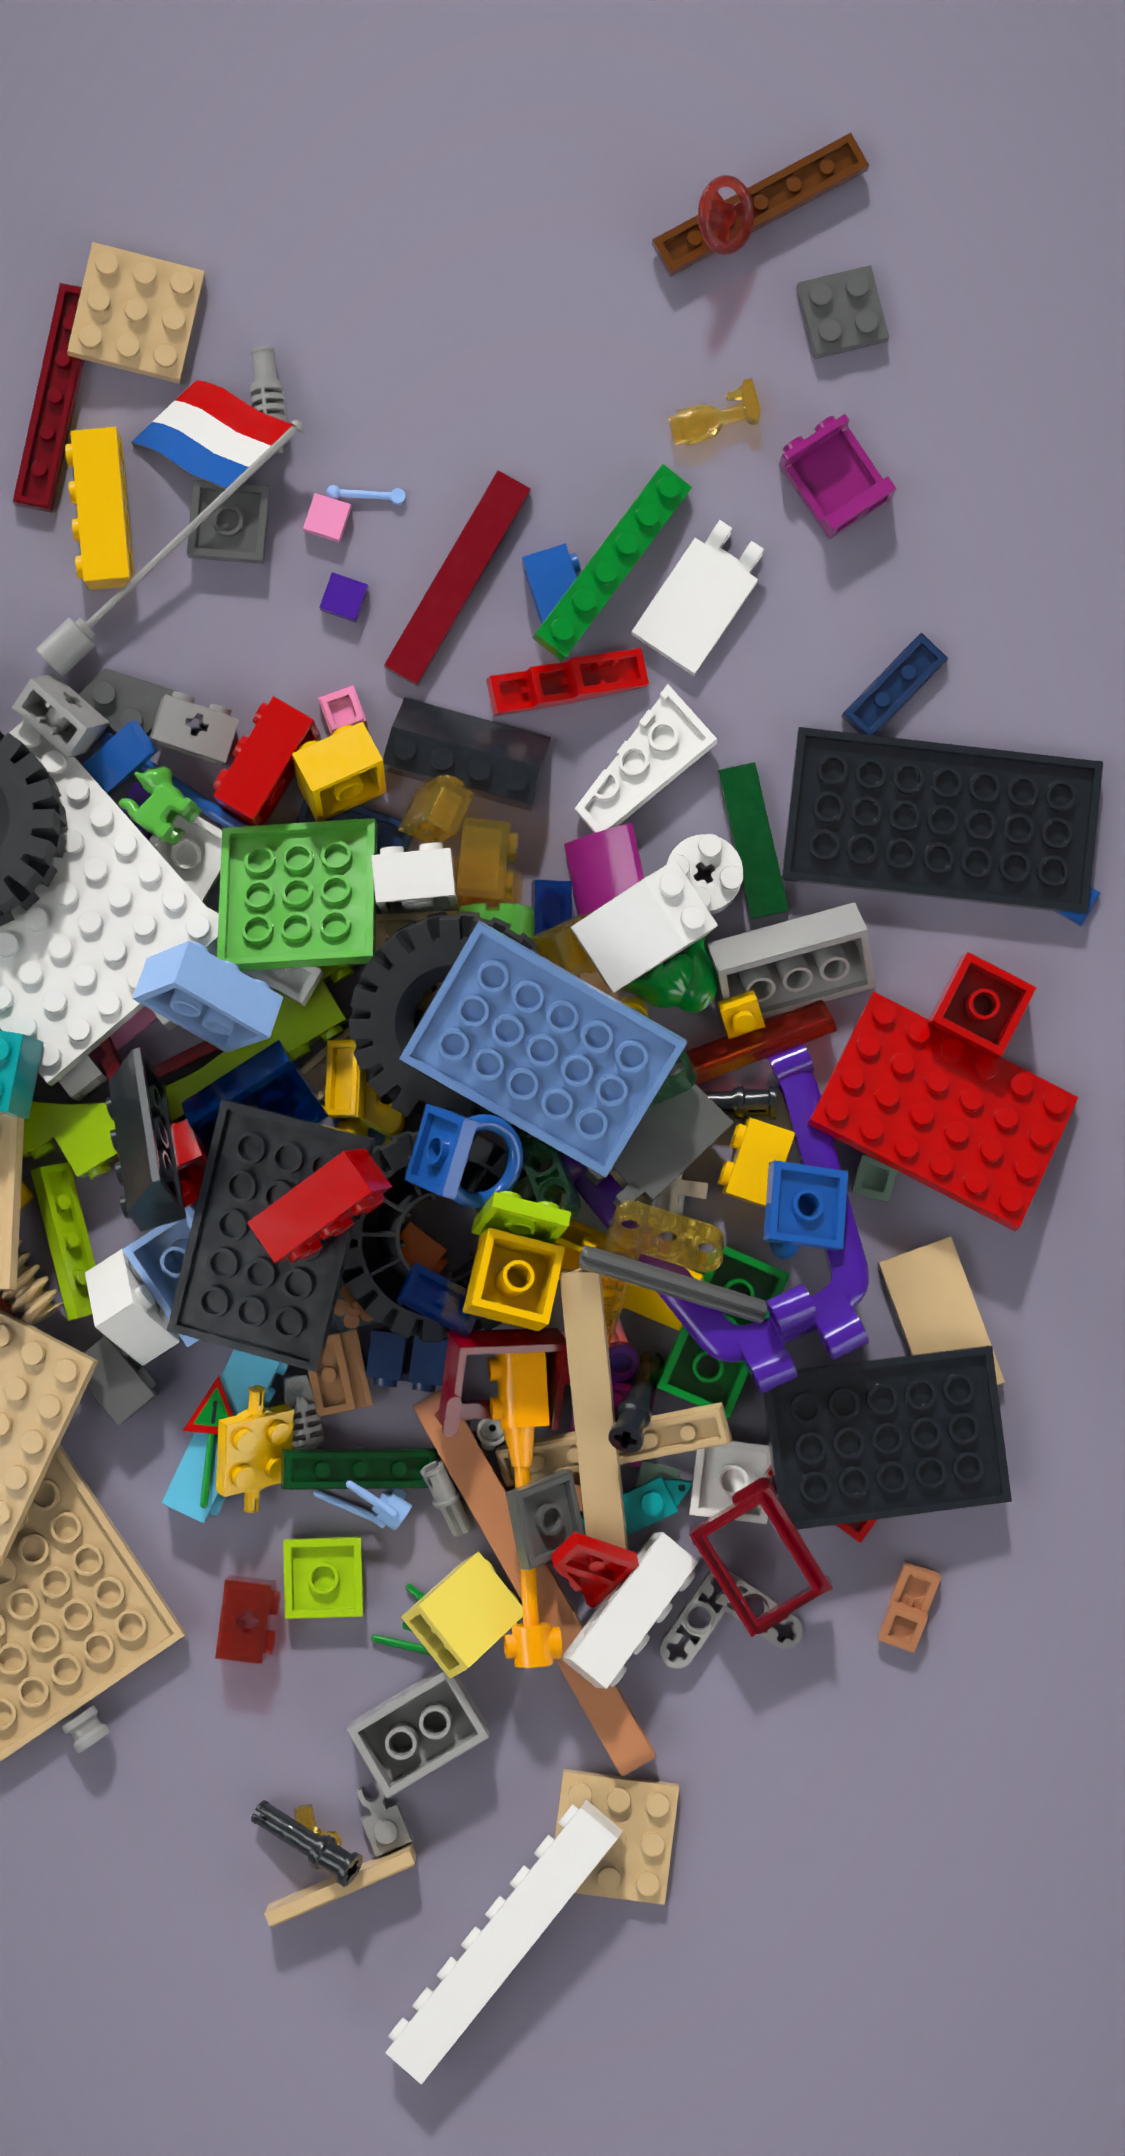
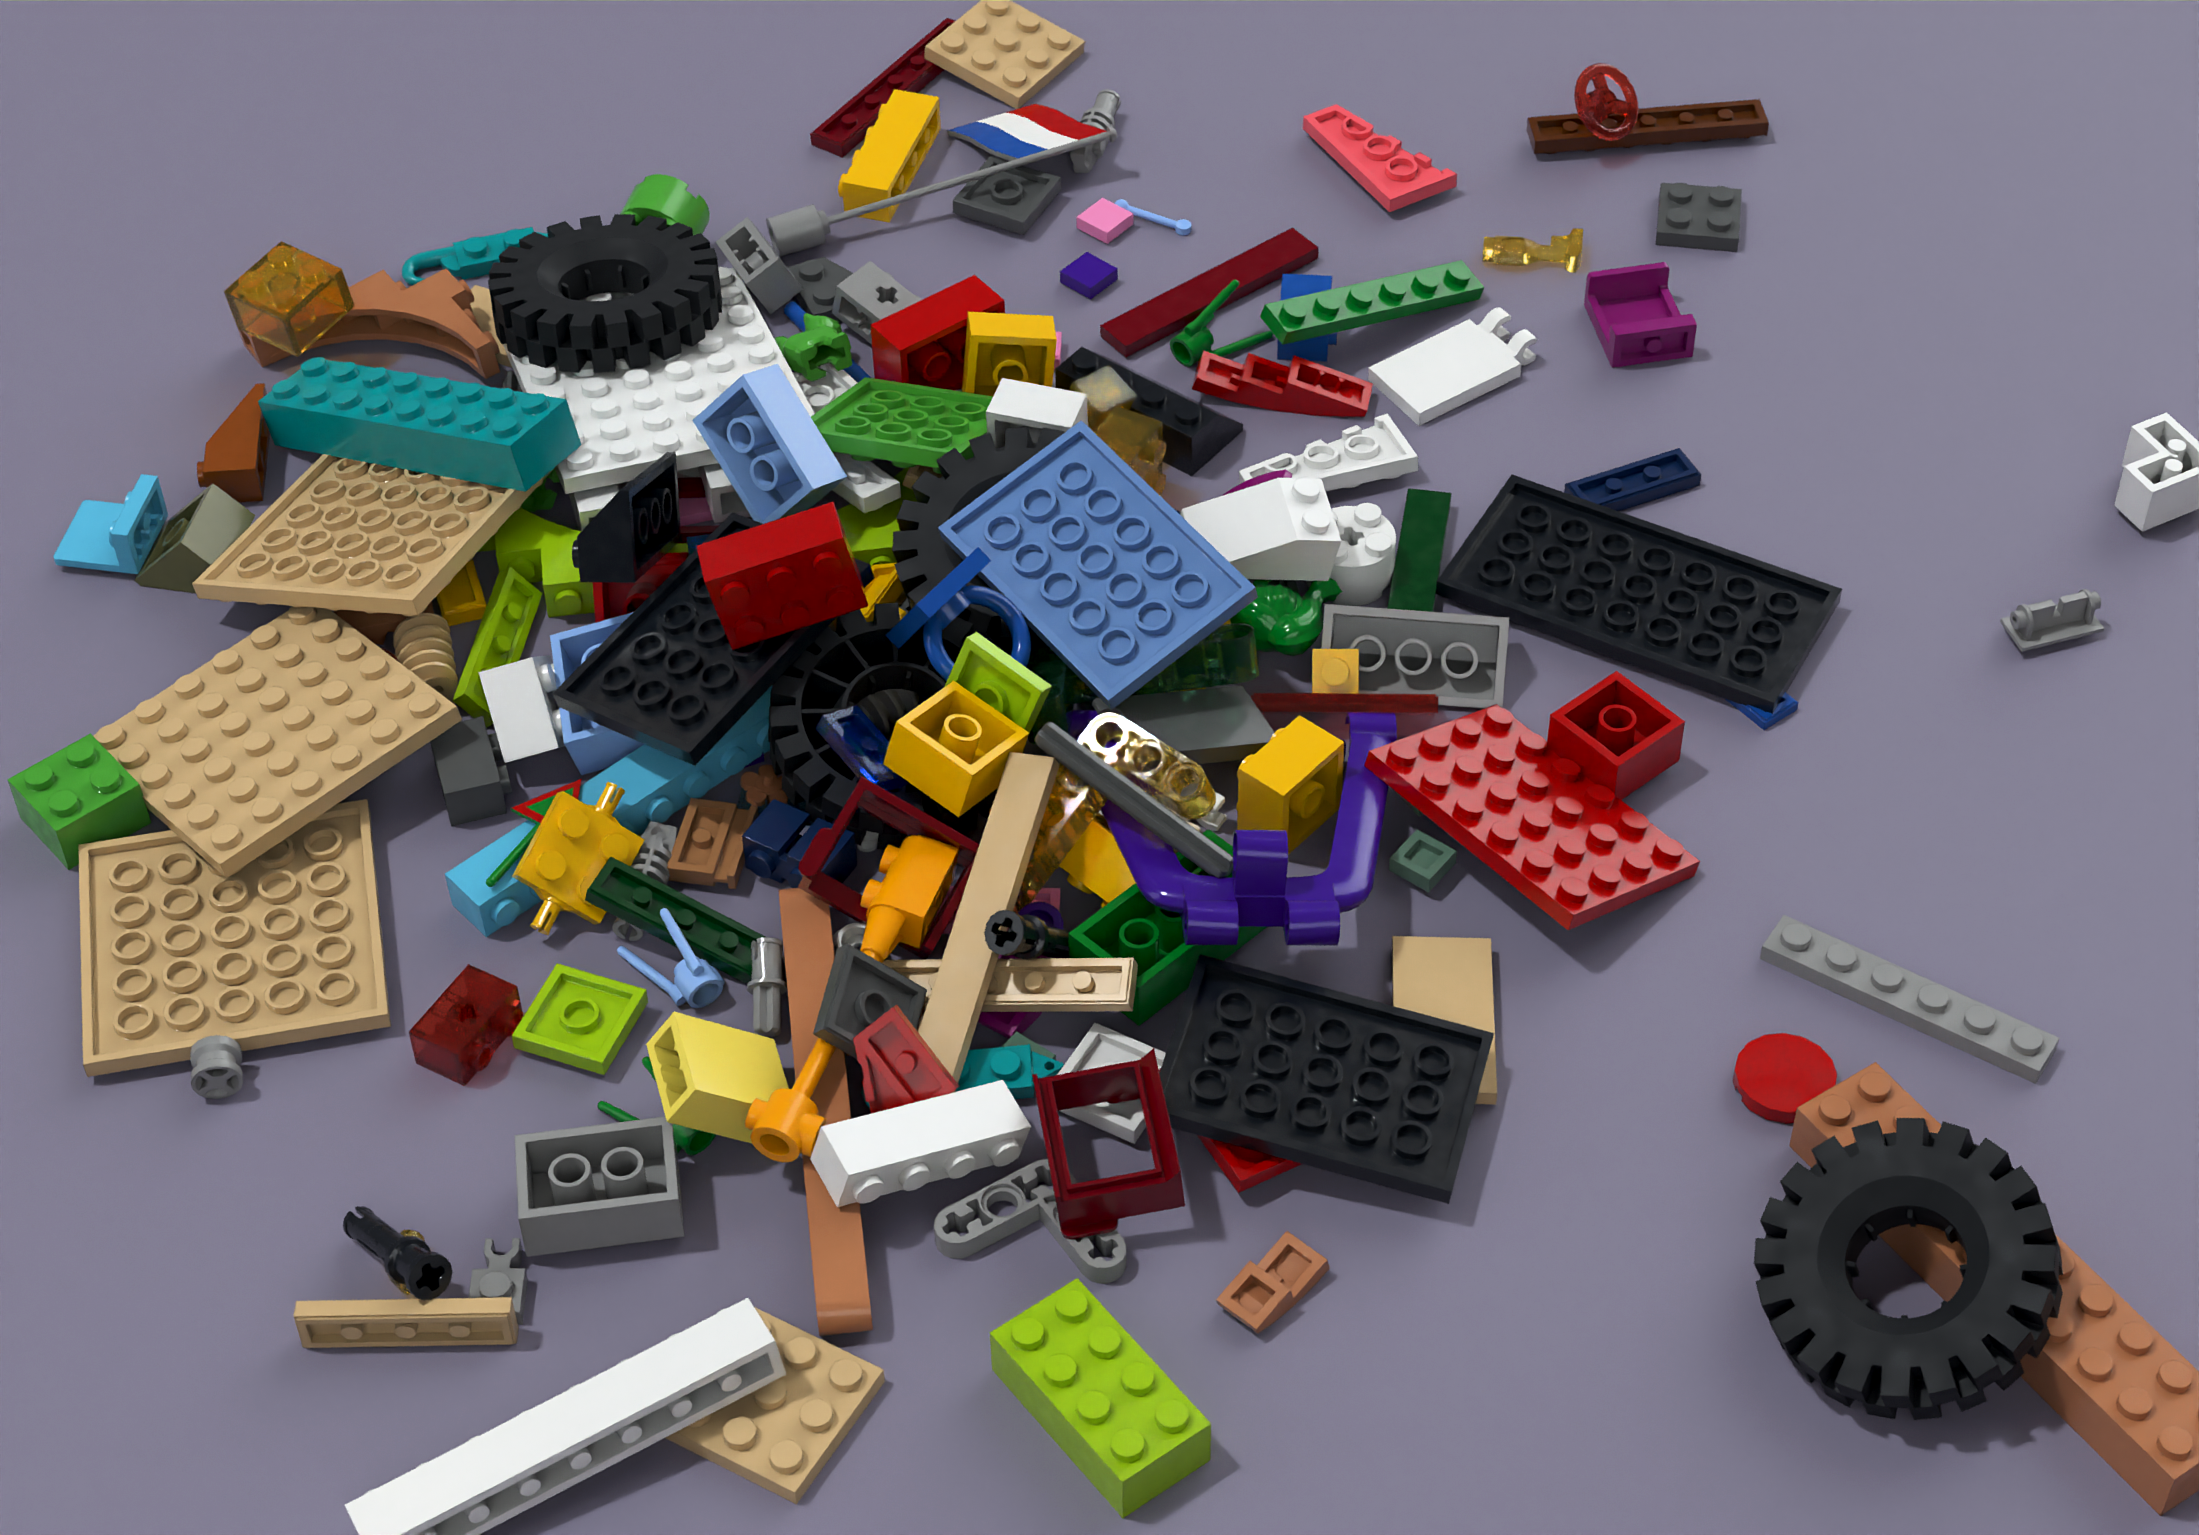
camera: 25 degrees right, 40 degrees down
(120, 757) = (786, 315): blue tile -> none
(473, 657) = (1196, 337): none -> green plant
(547, 352) = (1376, 160): none -> coral wing
(804, 1208) = (1322, 801): blue tile -> none
(835, 1756) = (1100, 1397): none -> lime brick

